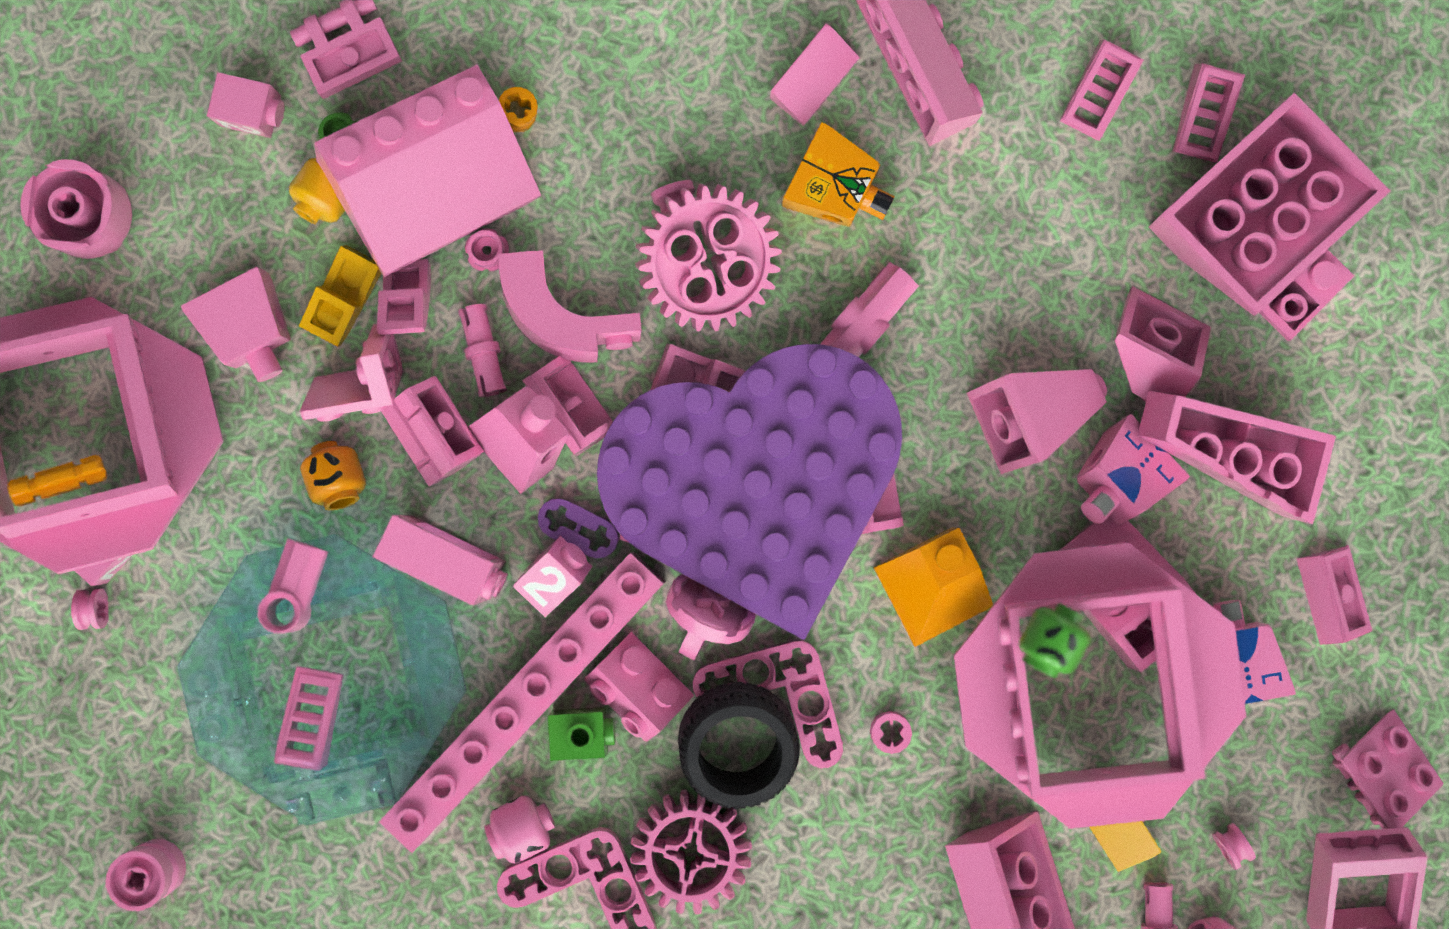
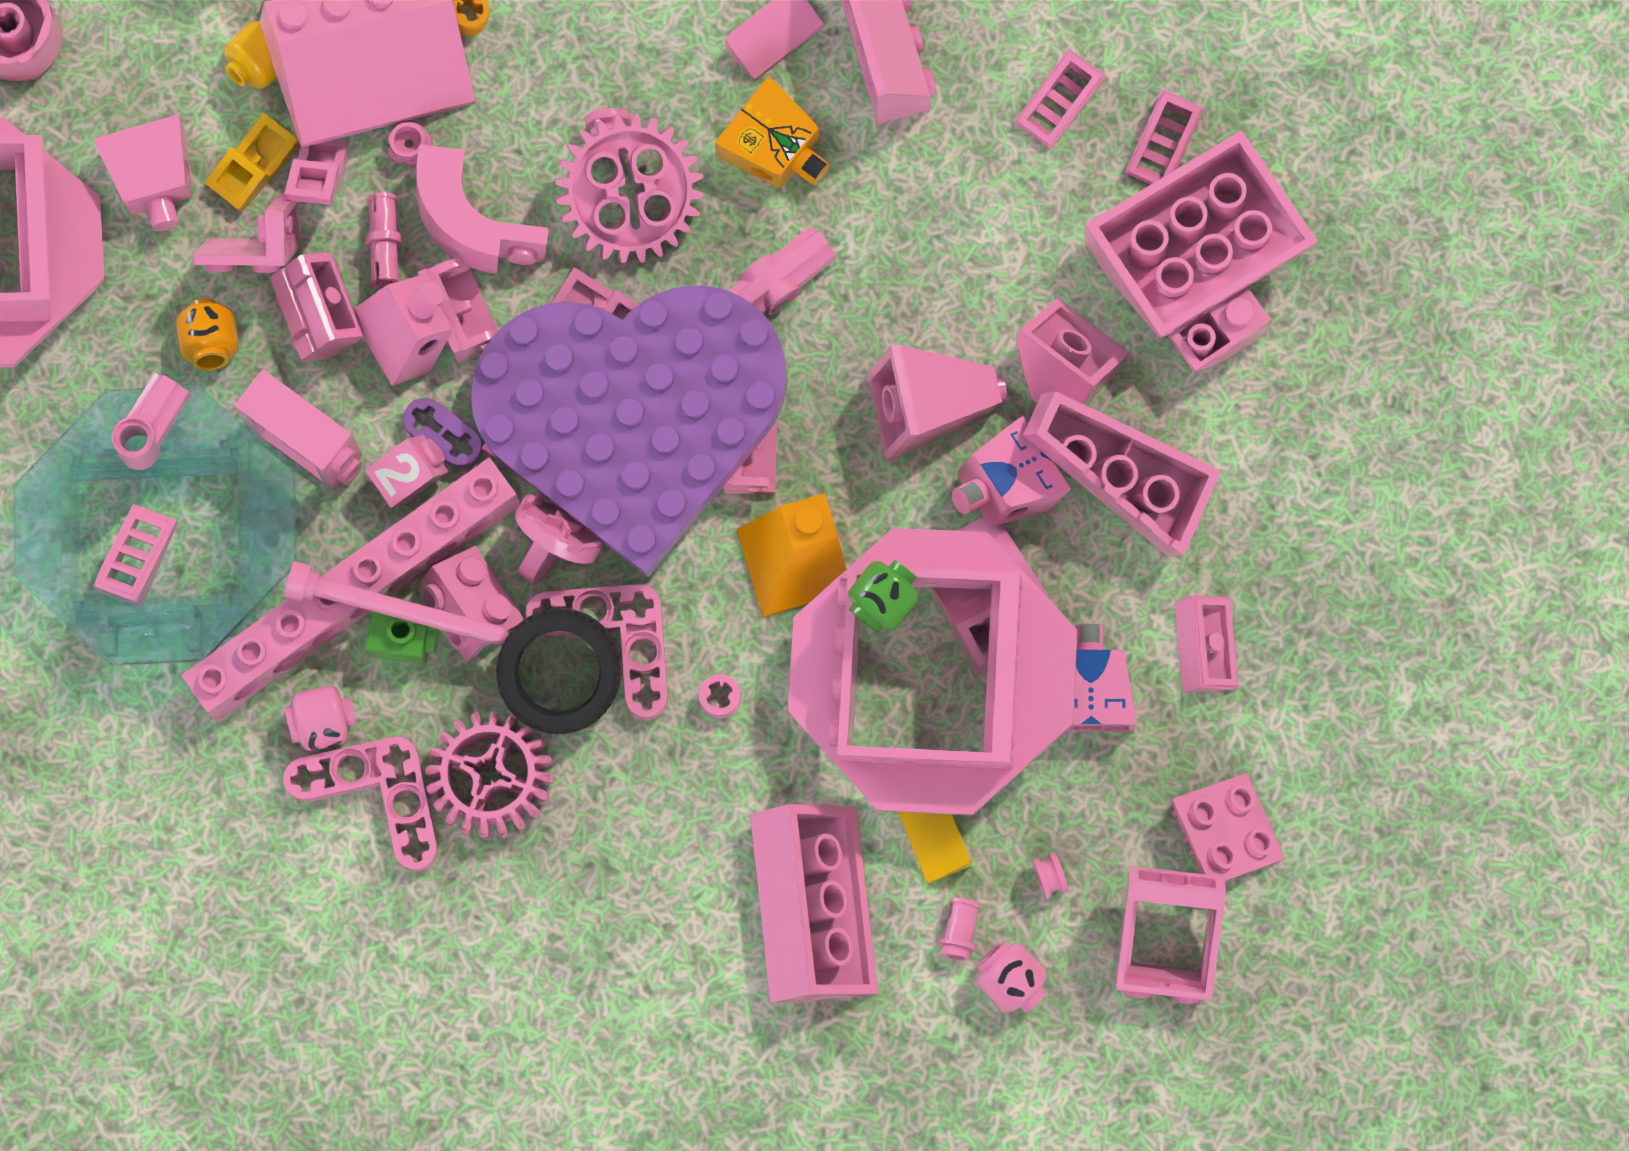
camera: 10 degrees right, 10 degrees down
(480, 718) = (307, 584): none -> bright pink piece

